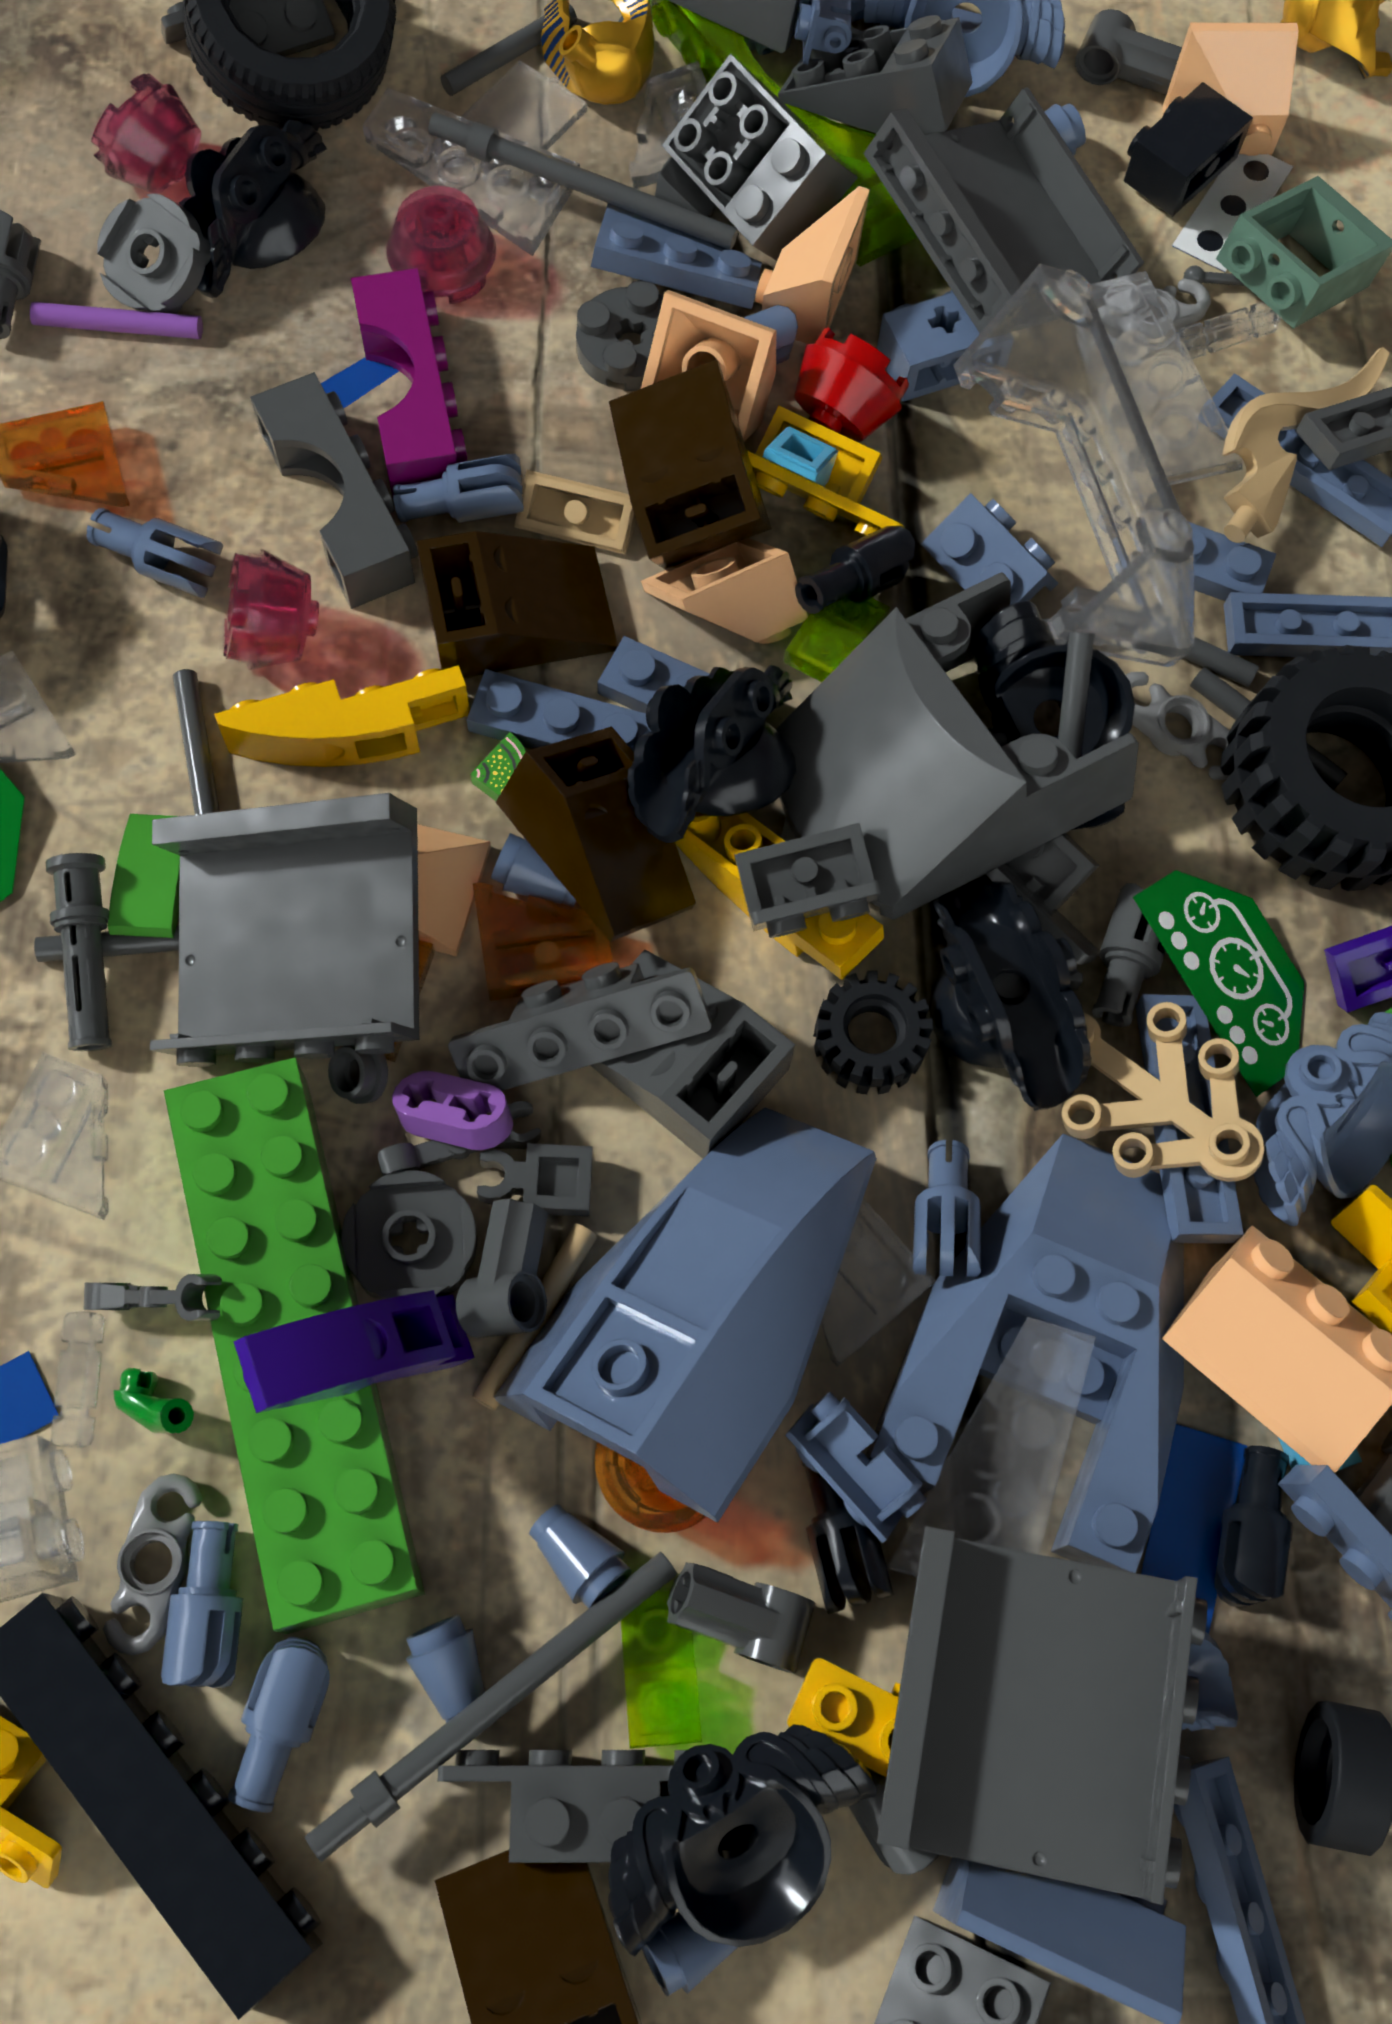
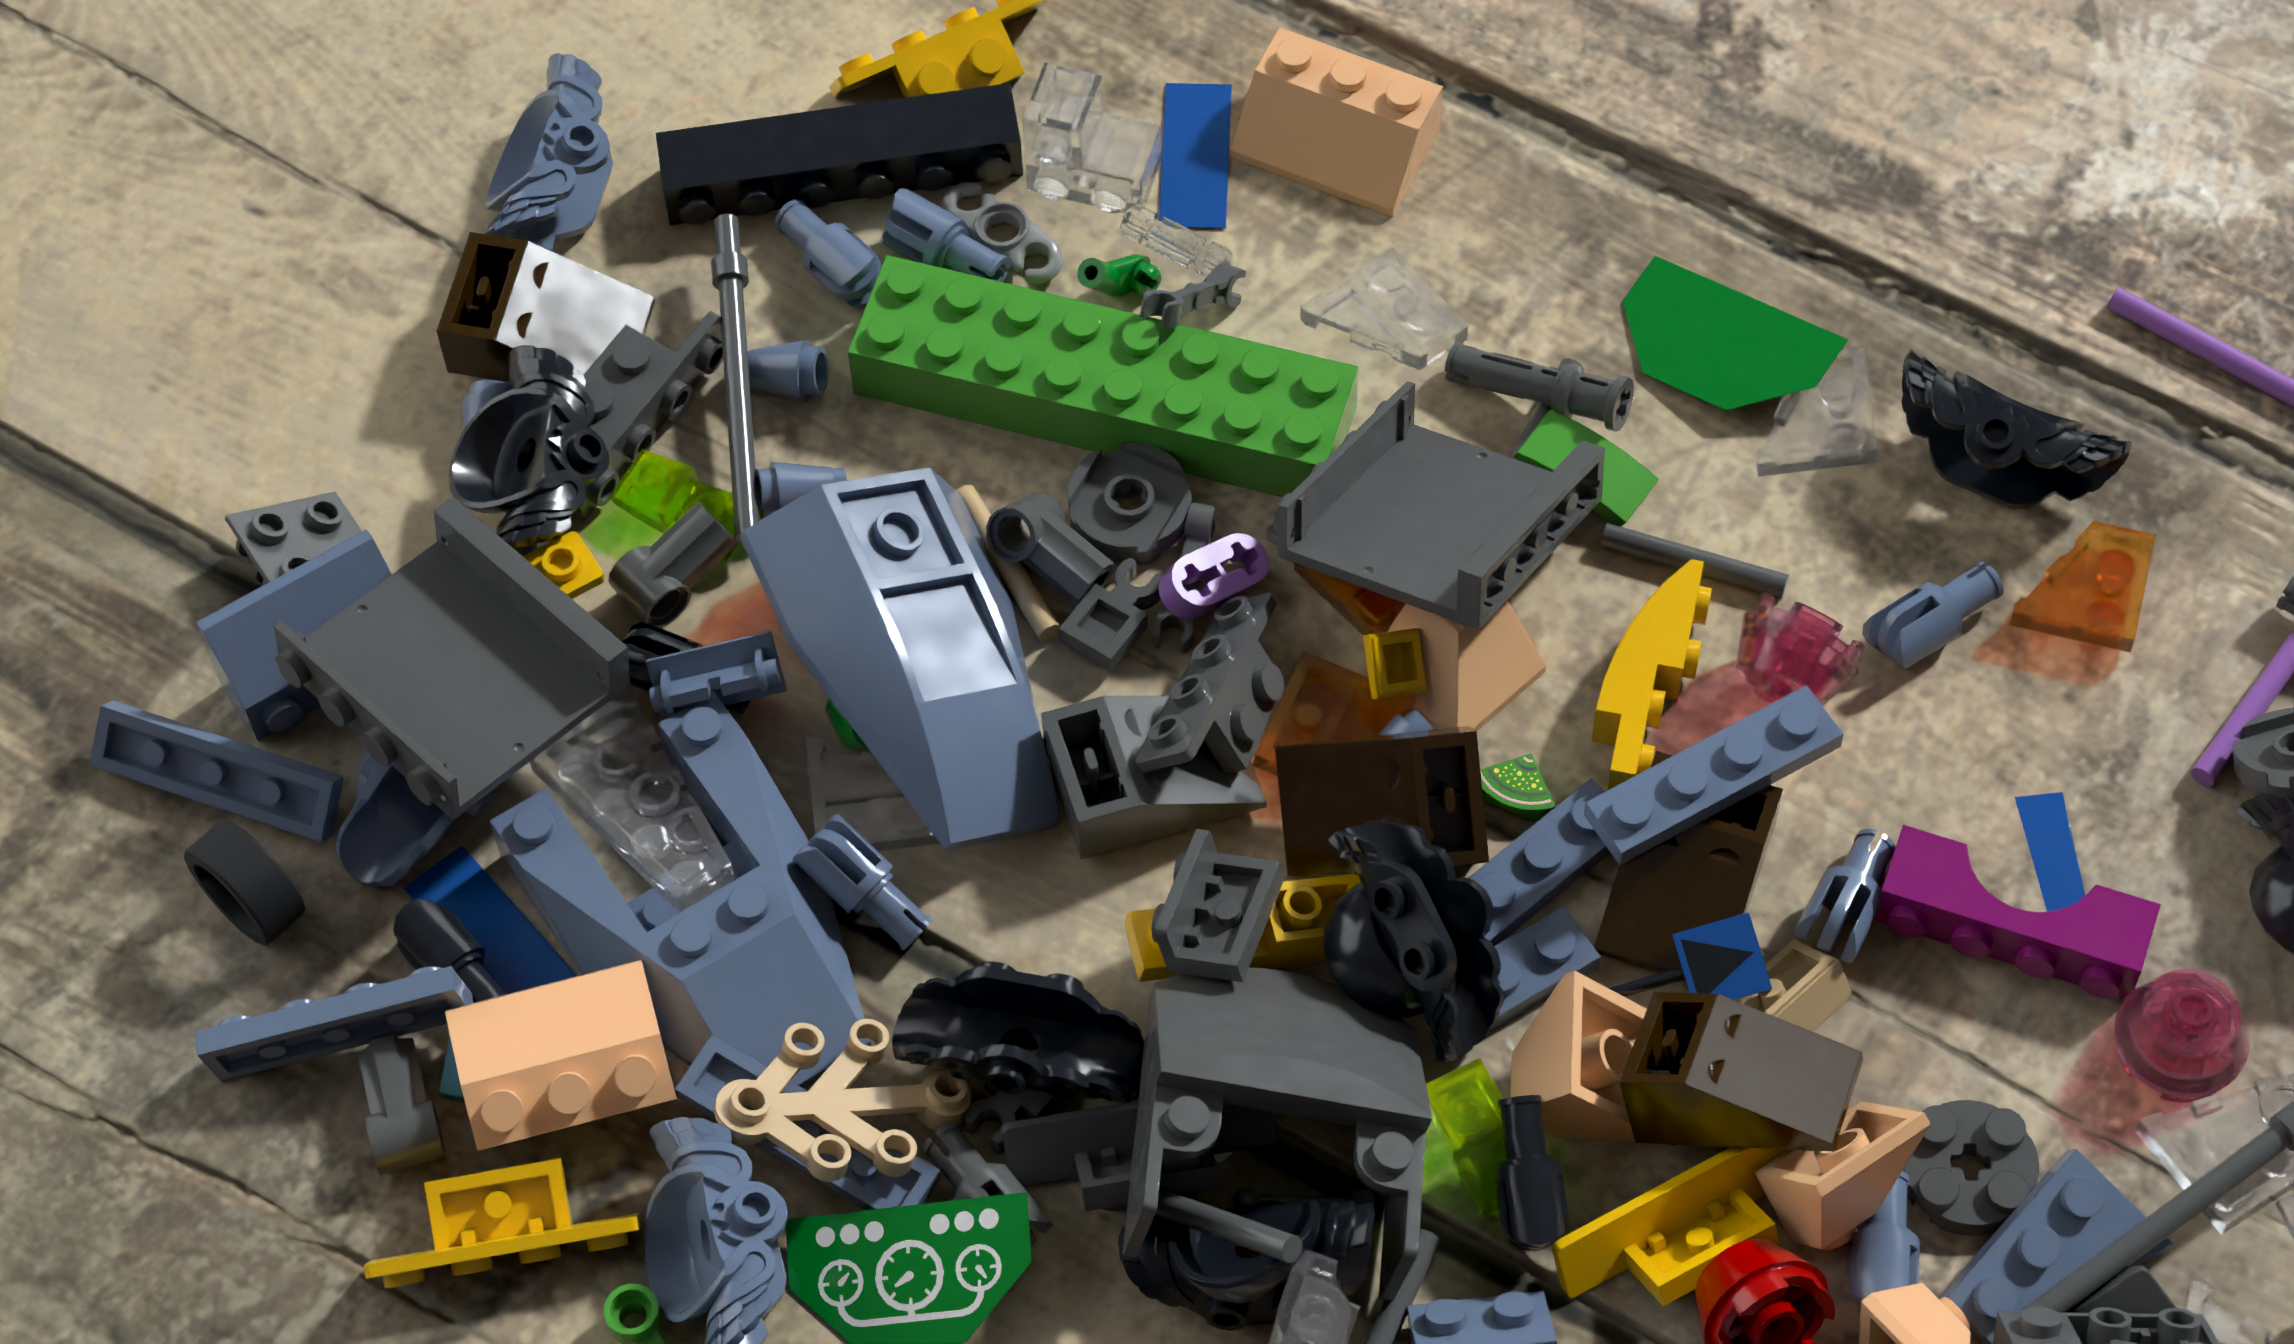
camera: 130 degrees right, 10 degrees down
(309, 439) = (1999, 800): dark grey arch -> none
(352, 1349) = (1040, 377): dark purple slope -> none
(440, 585) = (1713, 774): none -> sand blue plate
(462, 905) = (1395, 663): none -> yellow slope
(587, 552) = (1713, 960): none -> piece
(802, 455) = (1686, 1188): medium azure slope -> none
(880, 997) = (1065, 901): black tyre -> none

